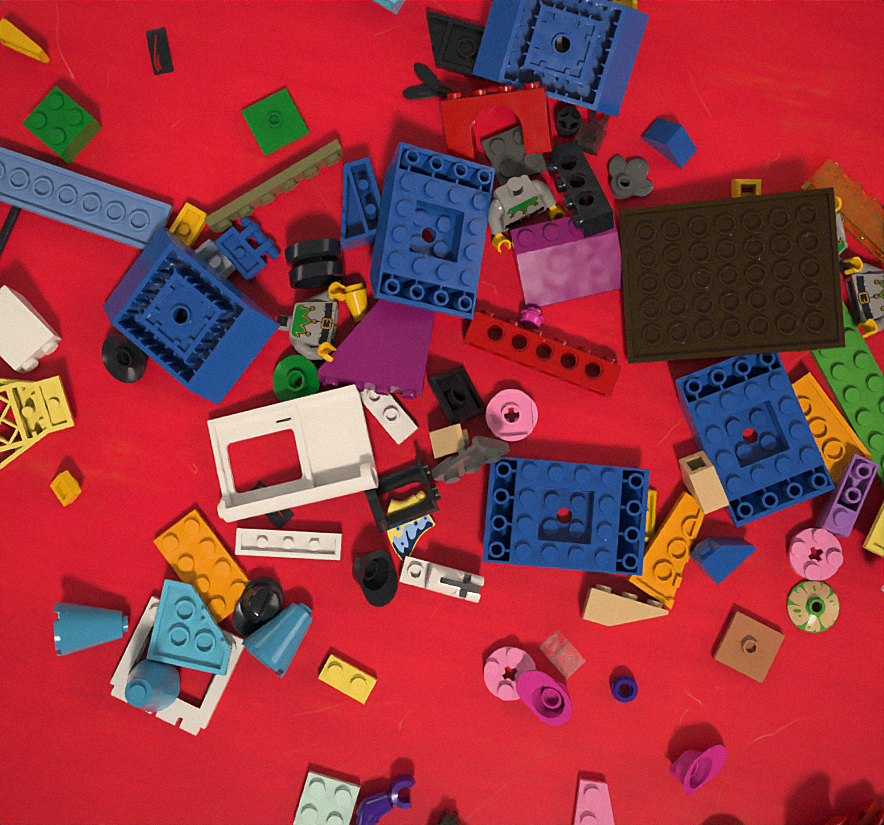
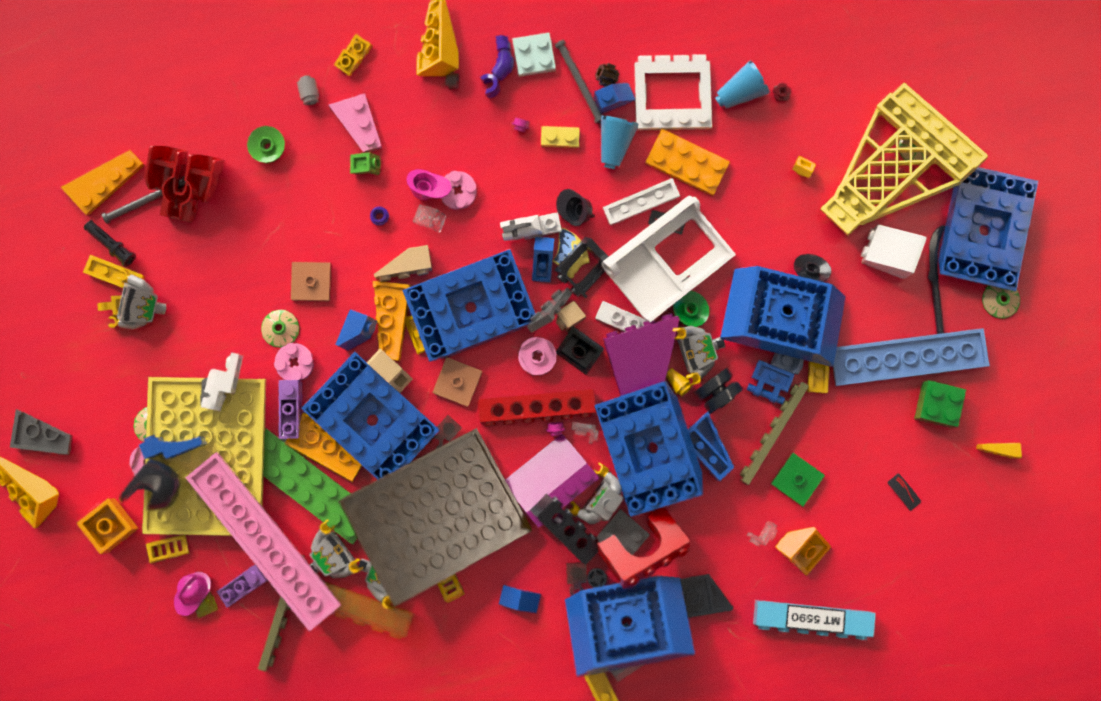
camera: 145 degrees right, 0 degrees up
(48, 597) = (782, 87): none -> dark red plate
(152, 685) = (681, 71): dark azure cone -> none
(187, 632) = (676, 114): medium azure plate -> none
(248, 729) = (607, 74): none -> dark brown gear
(254, 696) = (613, 97): none -> blue slope
(257, 605) = (641, 153): black piece -> none
(286, 740) = (579, 80): none -> dark grey bar
(311, 40) = (803, 548): none -> light orange slope
(345, 76) = (768, 533): none -> clear bracket
(389, 719) = (521, 124): none -> dark pink plate
(431, 88) = (703, 559): black piece -> none
(446, 531) = (542, 259): none -> blue slope
(498, 301) = (582, 429): none -> clear bracket
(611, 766) = (365, 163): none -> bright green bracket
(623, 432) = (457, 382): none -> nougat plate
(631, 175) = (534, 562): dark grey plate -> none
(663, 378) = (448, 430): none -> clear smoke plate
(698, 767) = (310, 188): dark pink piece -> none

